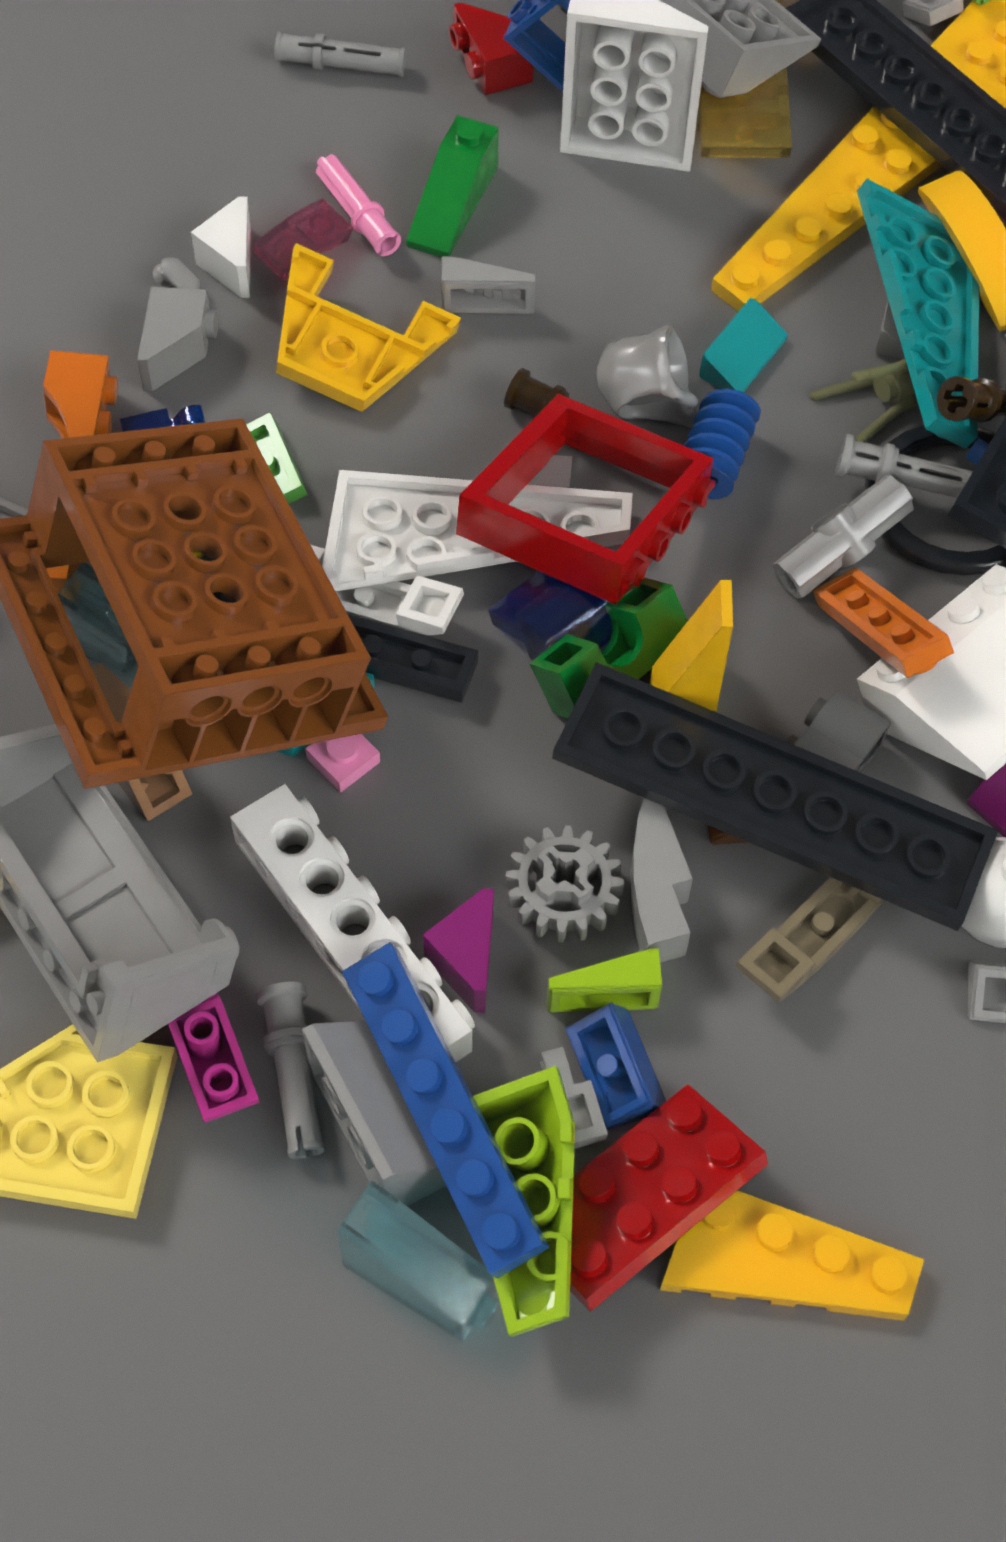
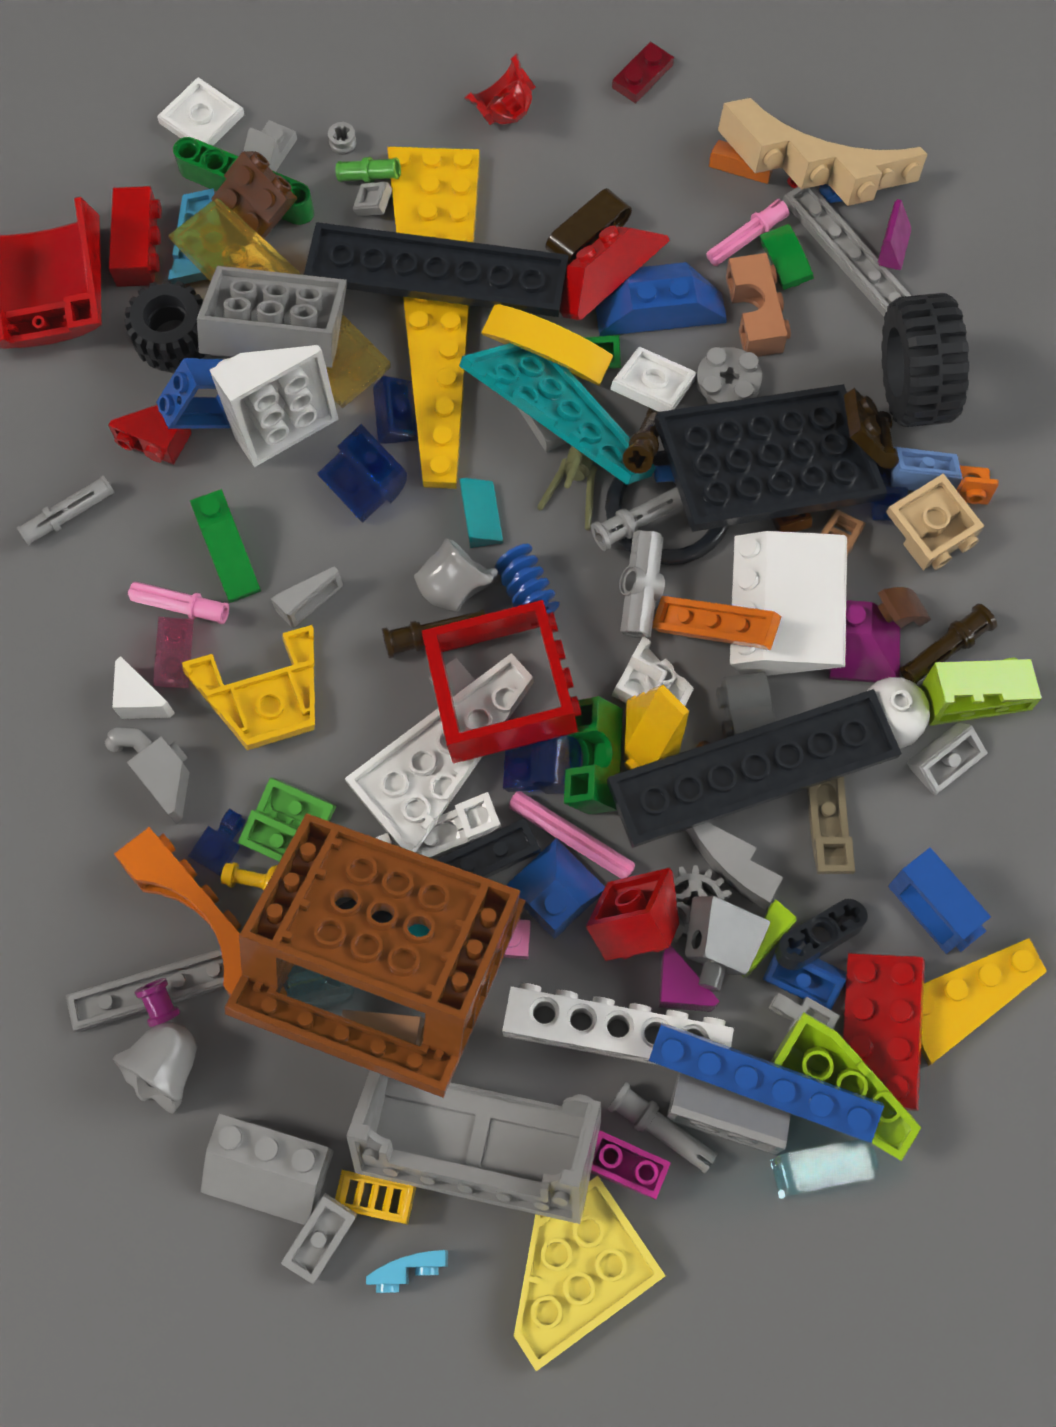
camera: 40 degrees left, 10 degrees up
(440, 751) = (556, 888): none -> blue slope
(485, 832) = (635, 915): none -> red slope
(511, 715) = (571, 835): none -> bright pink axle
(553, 928) = (722, 939): none -> torso
(655, 1043) = (815, 948): none -> black beam
(657, 225) = (363, 474): none -> clear blue brick
(754, 200) = (395, 410): none -> clear blue slope
(761, 649) = (647, 672): none -> white slope
(847, 1113) = (940, 902): none -> blue window

